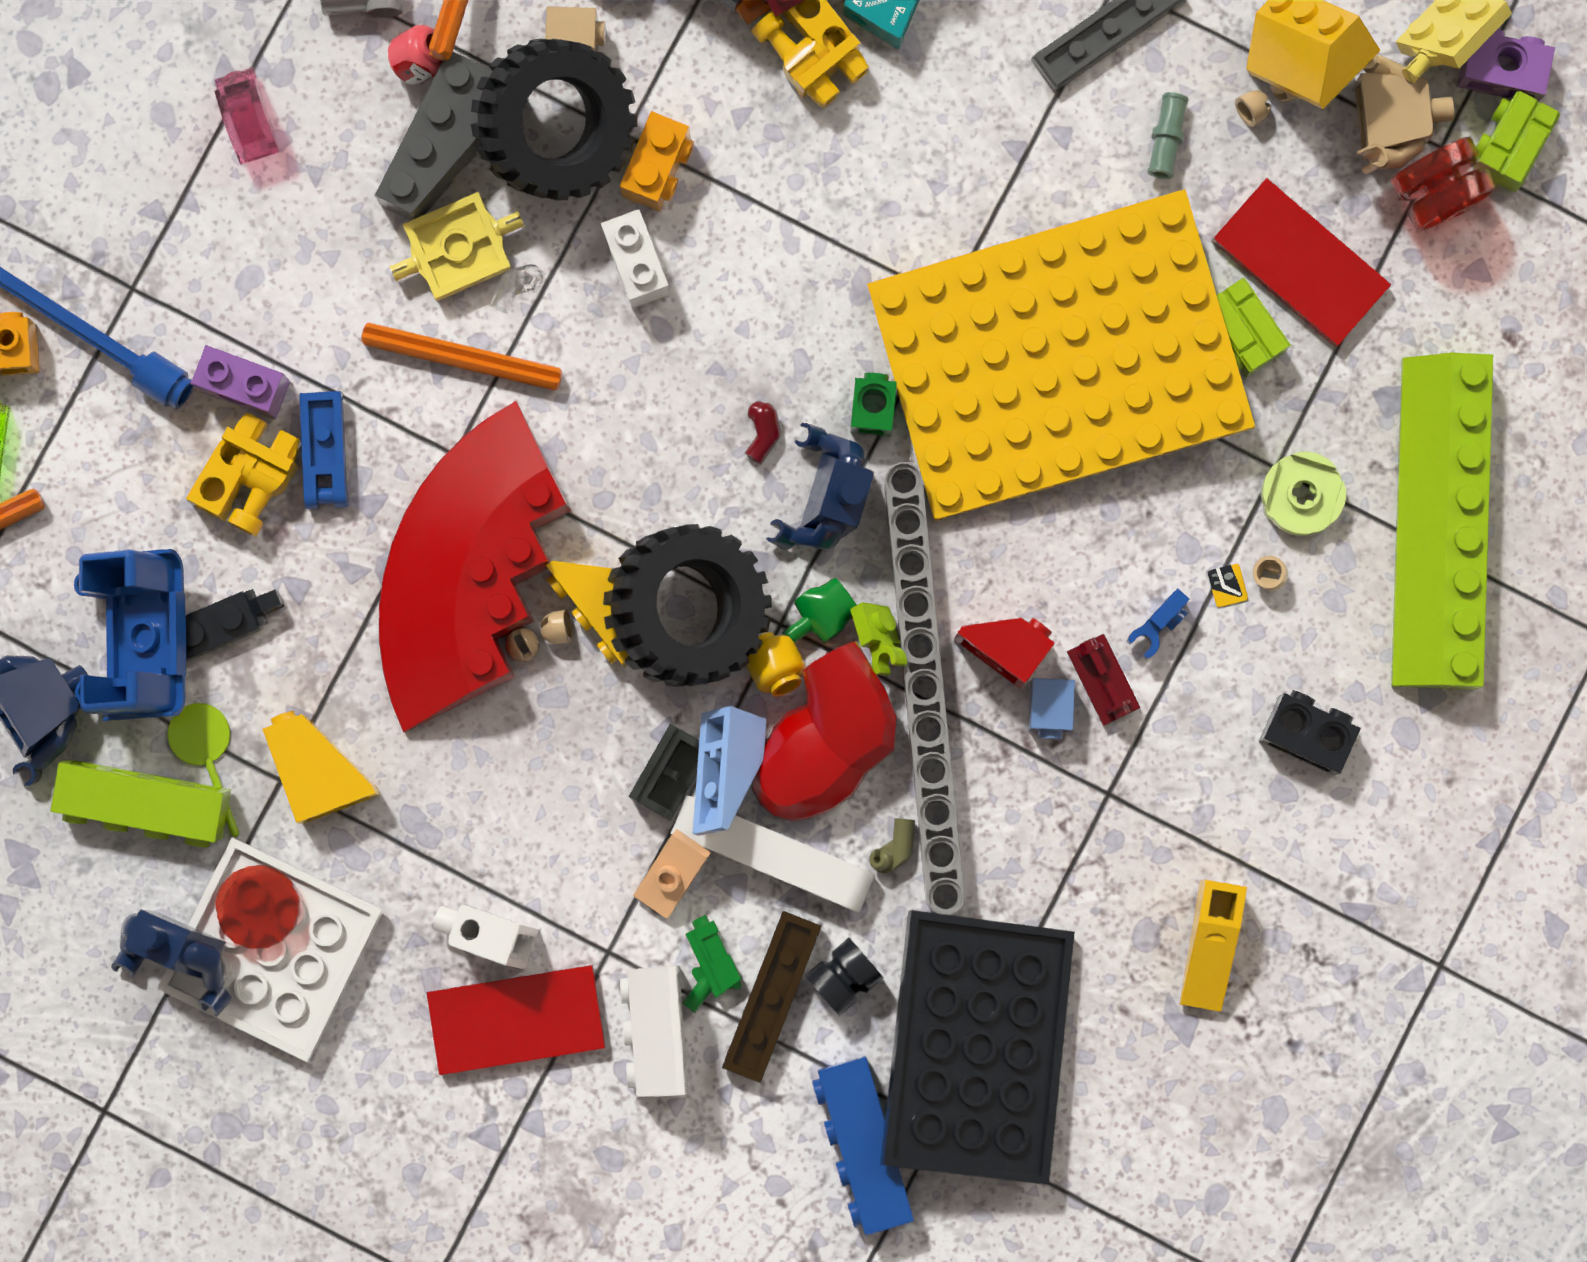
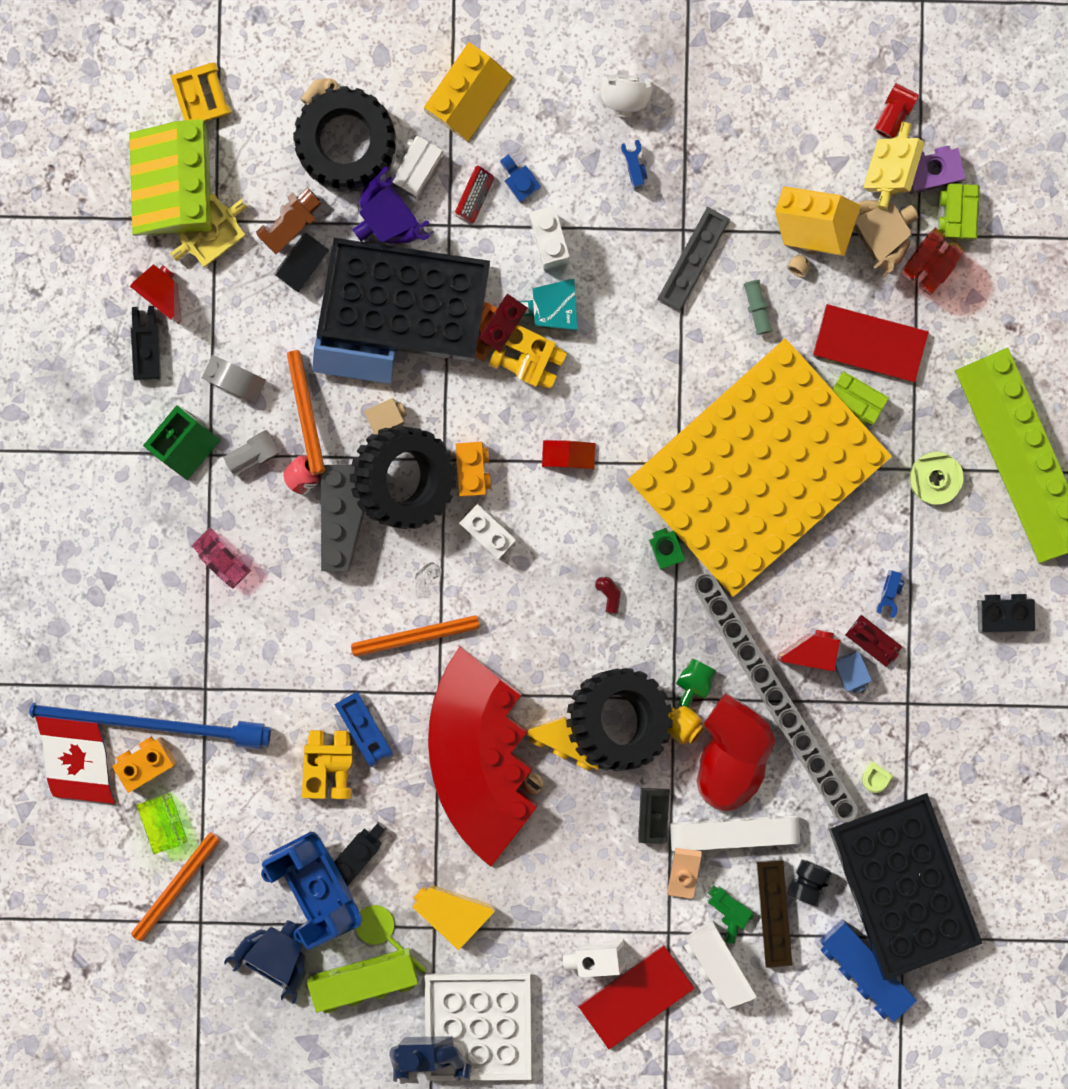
camera: 30 degrees left, 5 degrees up
(240, 382) = (297, 714): medium lavender brick -> none
(258, 907) = (460, 1007): clear red tile -> none
(457, 246) = (381, 574): light yellow plate -> none
(557, 627) = (548, 764): tan hinge -> none
(727, 763) = (686, 798): light blue slope -> none
(803, 210) = (568, 454): none -> red slope
(835, 496) = (671, 612): dark blue torso -> none
(878, 632) = (735, 680): lime plate -> none
(897, 850) = (804, 795): olive arm -> none
(1011, 876) = (876, 778): none -> yellowish green tile
(1212, 944) = (1008, 761): yellow slope -> none
(1227, 585) = (917, 550): sticker -> none
(1273, 565) = (937, 528): tan hinge -> none

